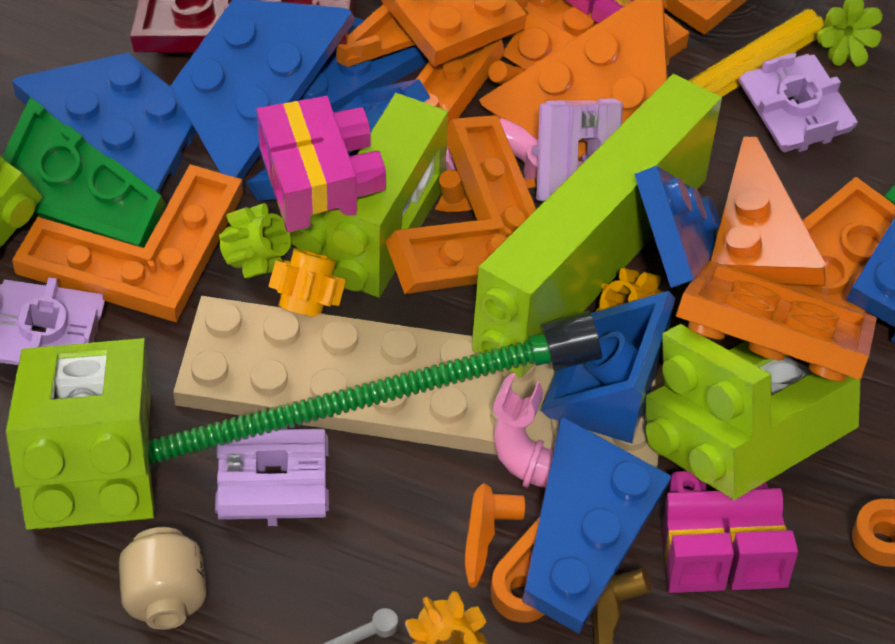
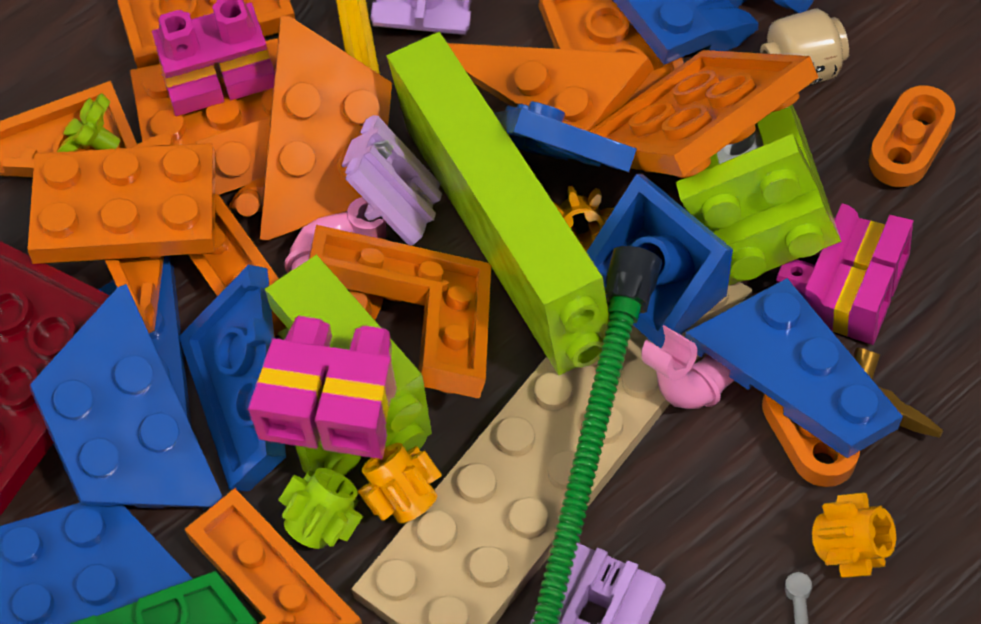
camera: 55 degrees left, 5 degrees up
(481, 526) = (742, 460): orange bar -> none

